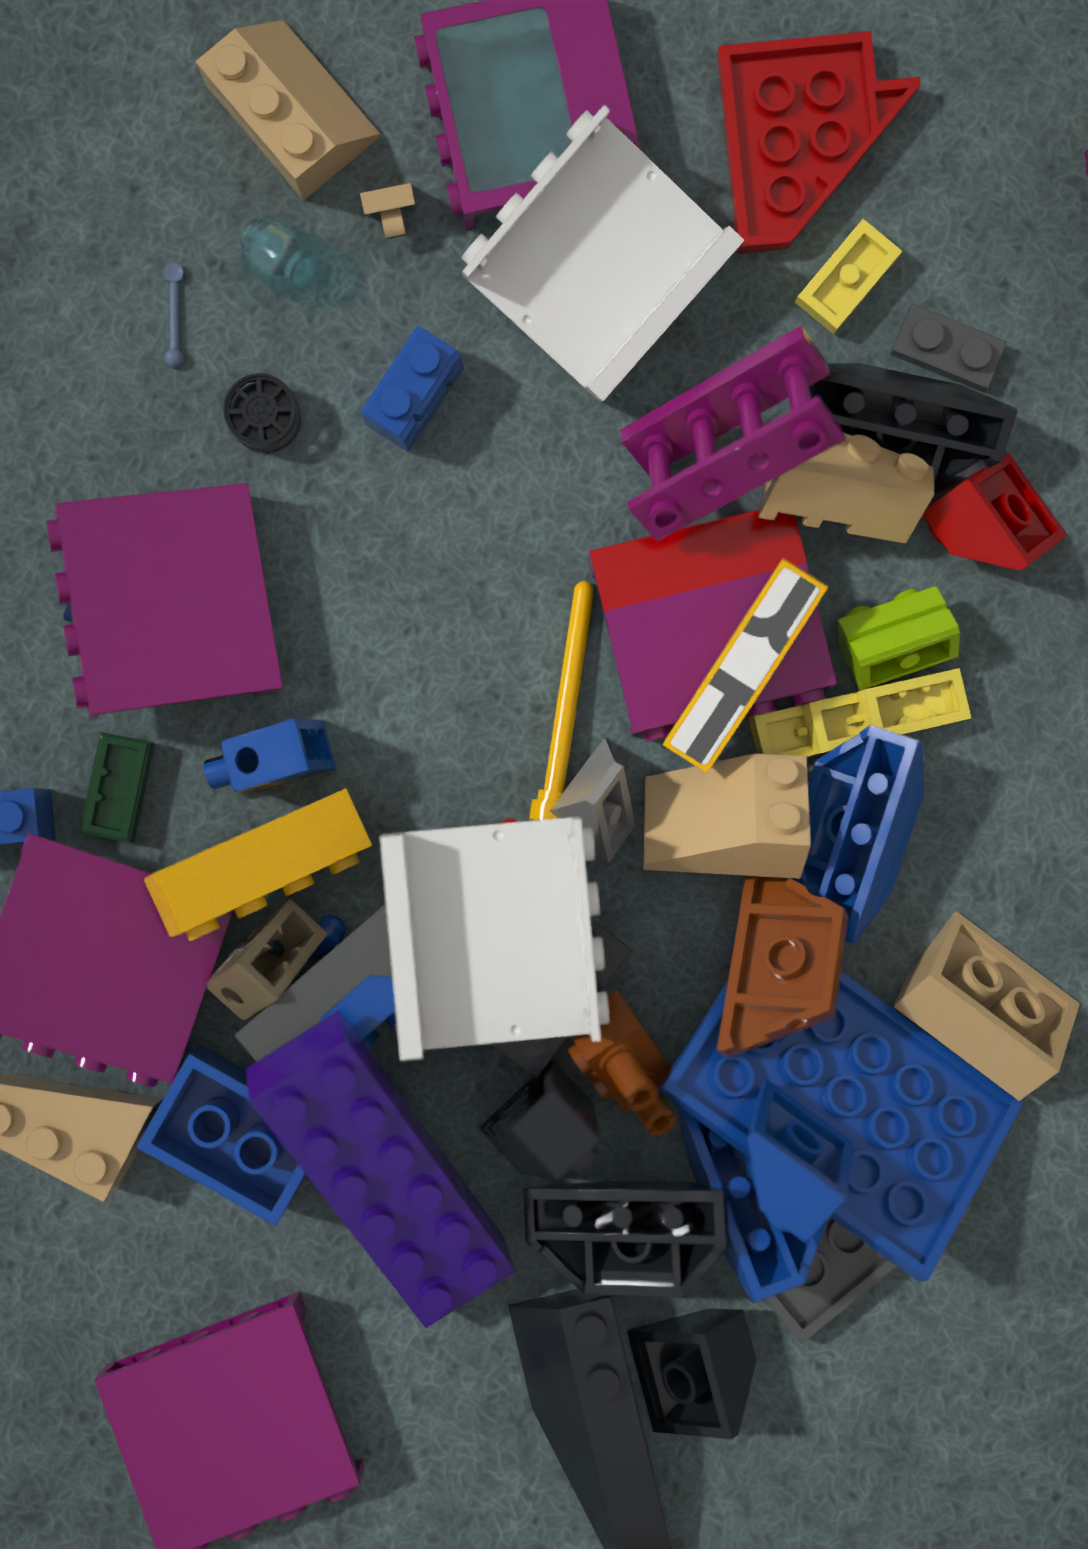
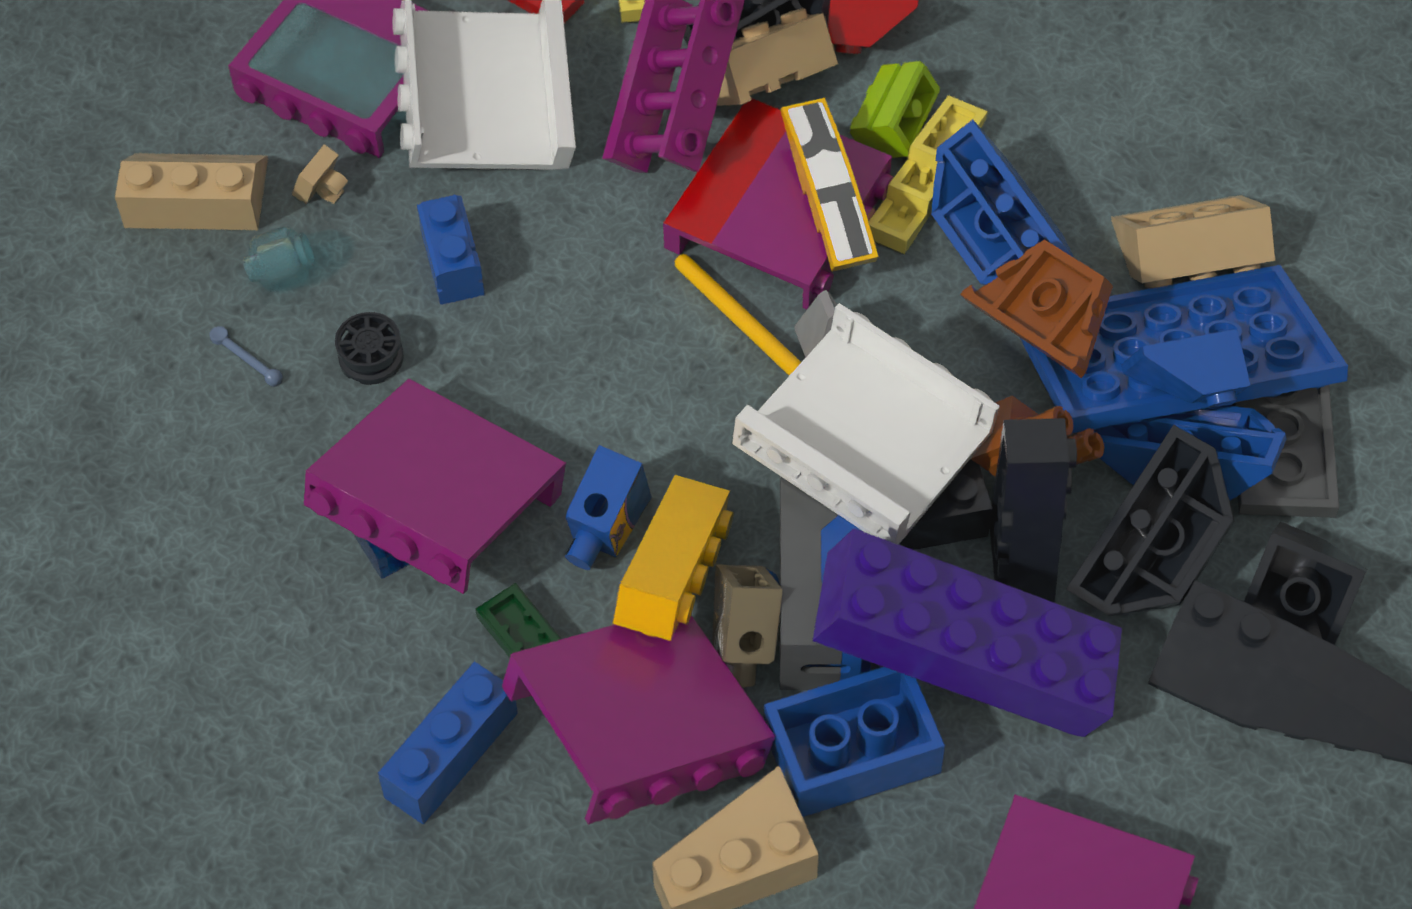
camera: 50 degrees left, 30 degrees down
(732, 821) = (925, 270): tan slope -> none

